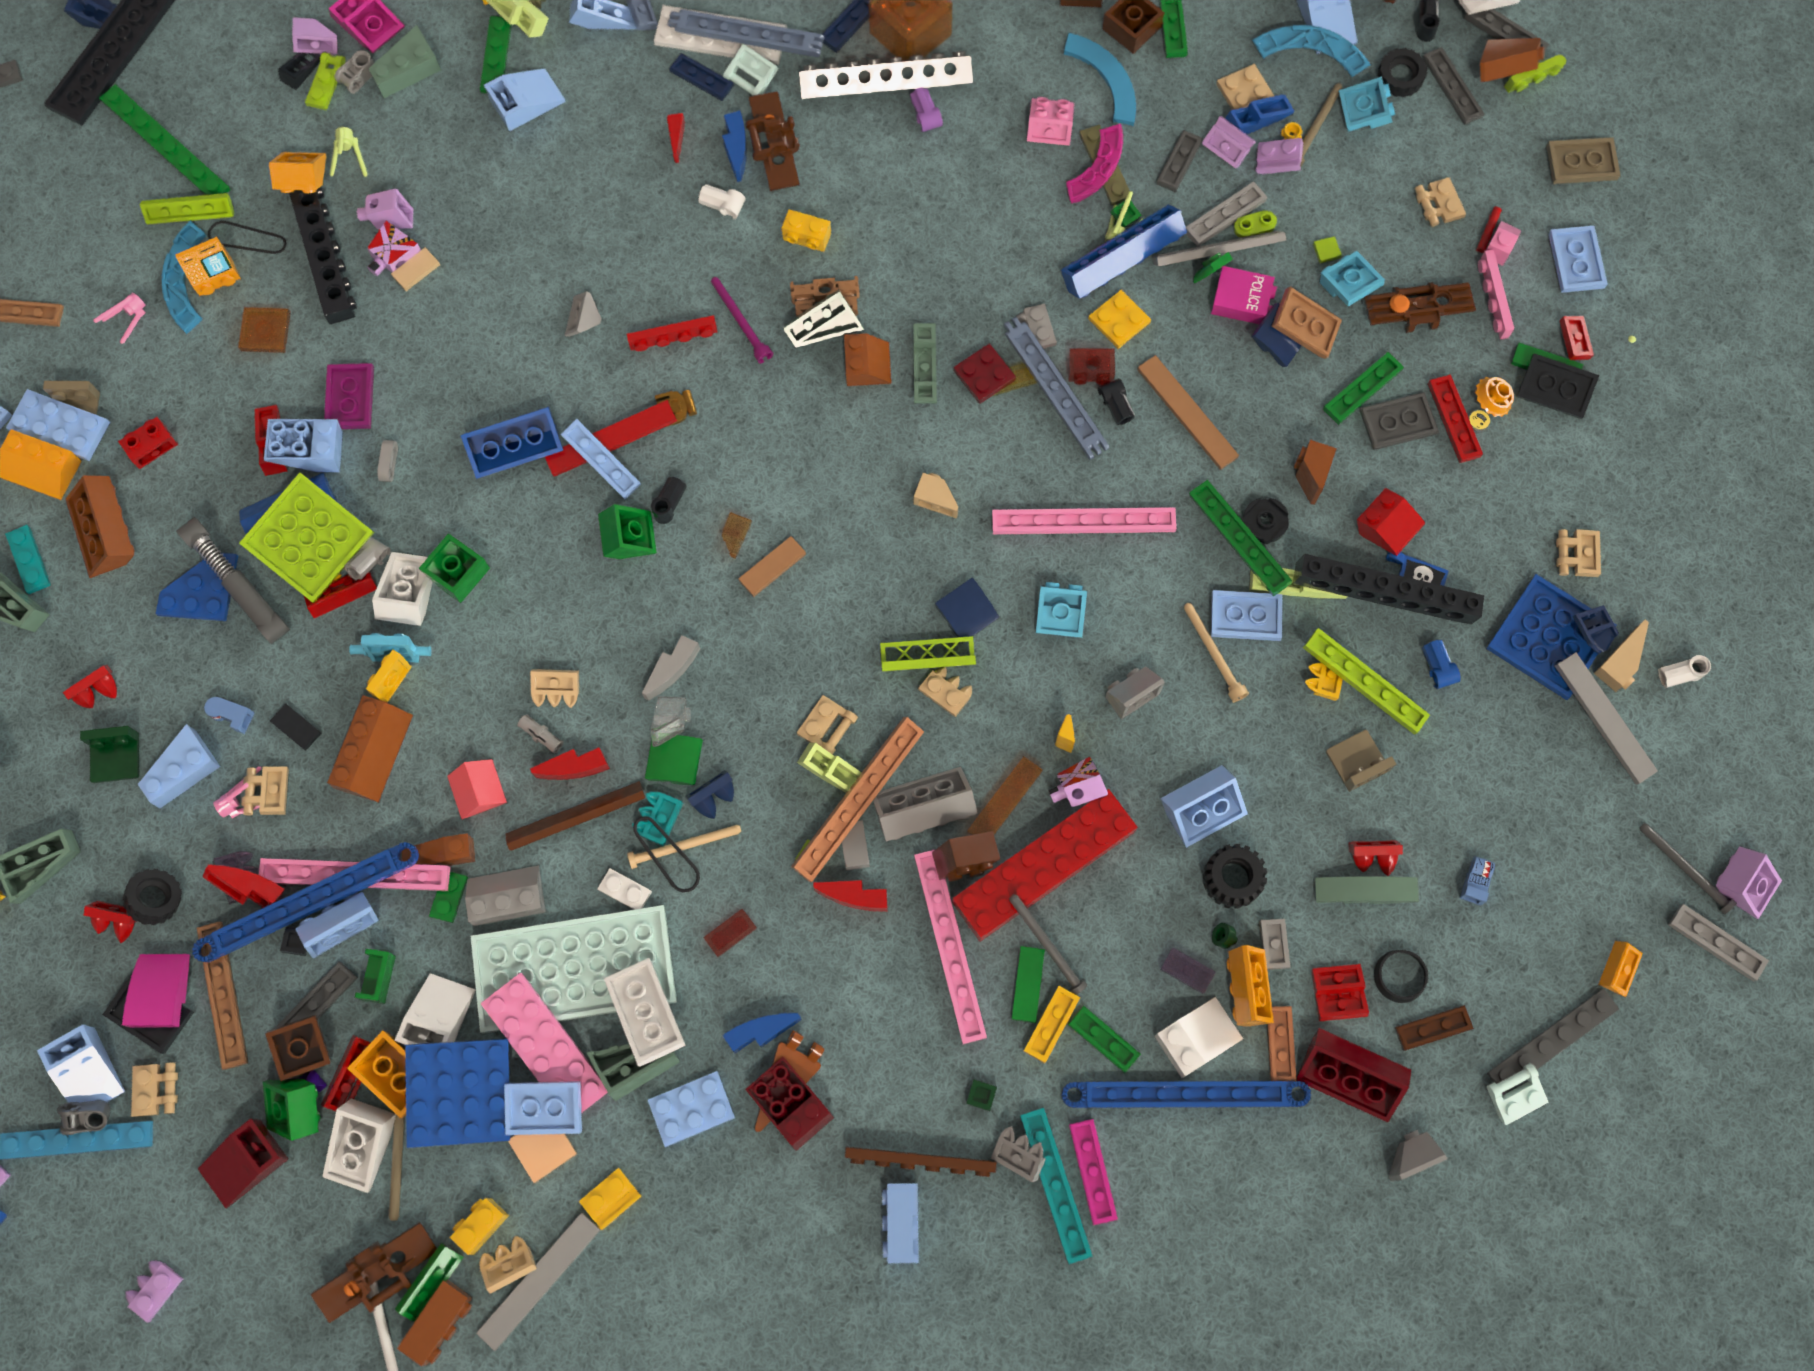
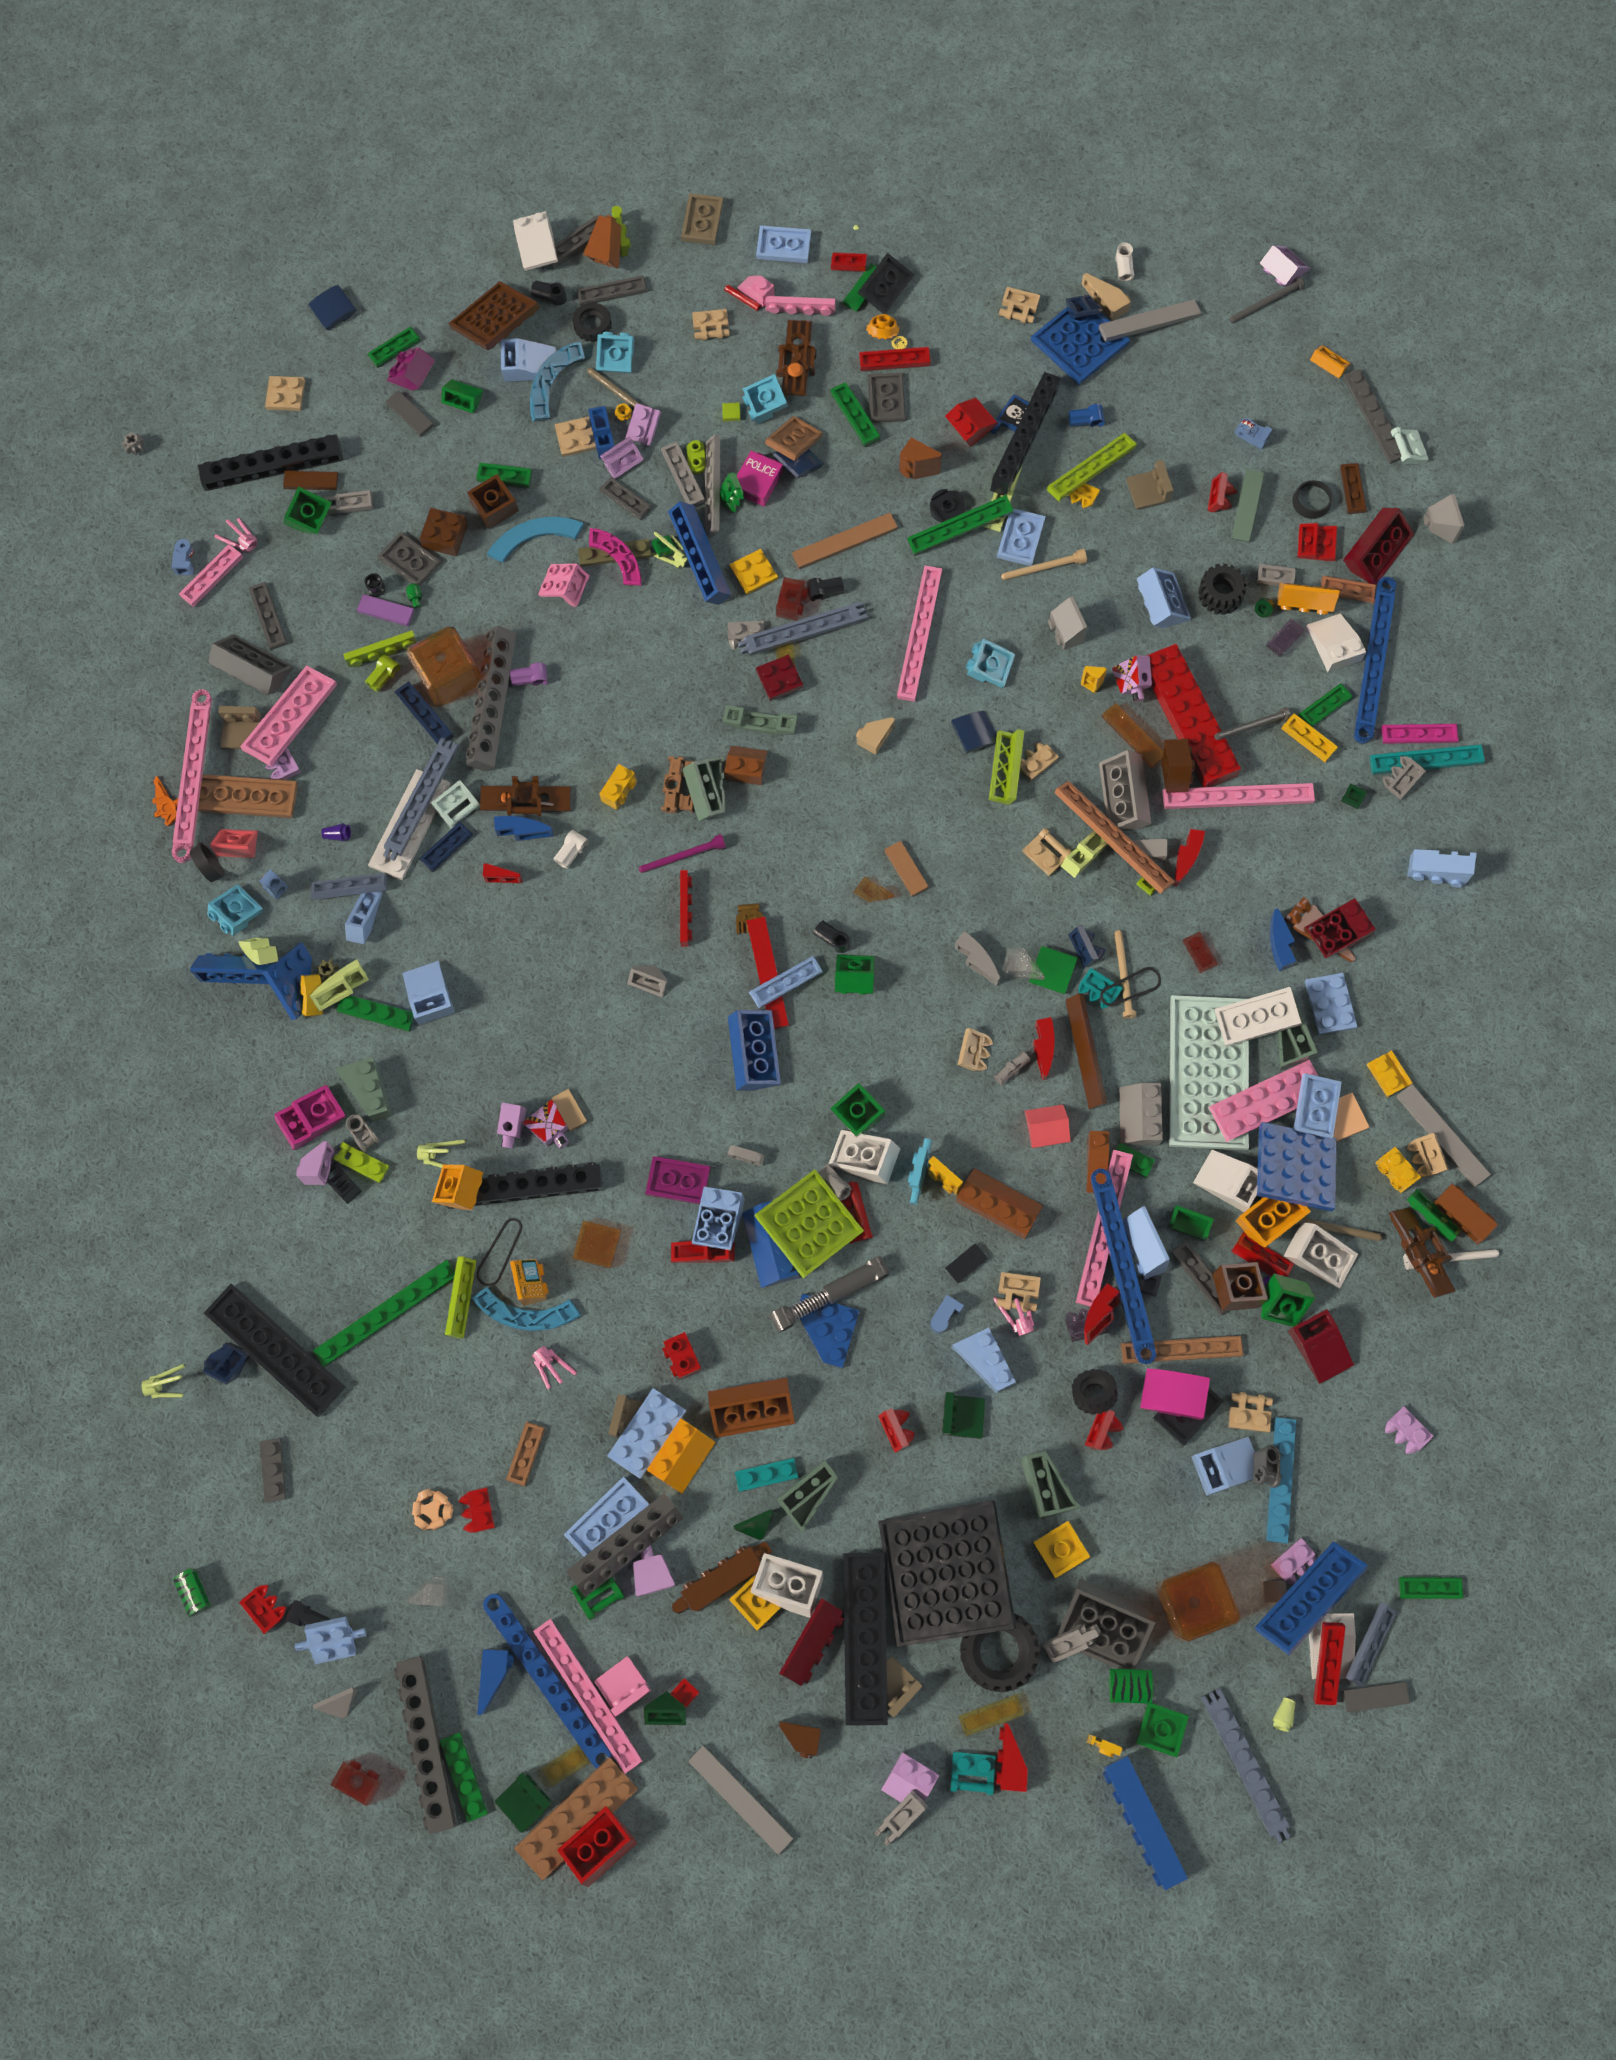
camera: 75 degrees left, 0 degrees up
(624, 890) = (1152, 1025): white plate -> none
(931, 1162) = (1398, 839): reddish brown plate -> none
(1028, 984) = (1276, 748): green tile -> none
(1718, 942) = (1323, 296): light grey plate -> none

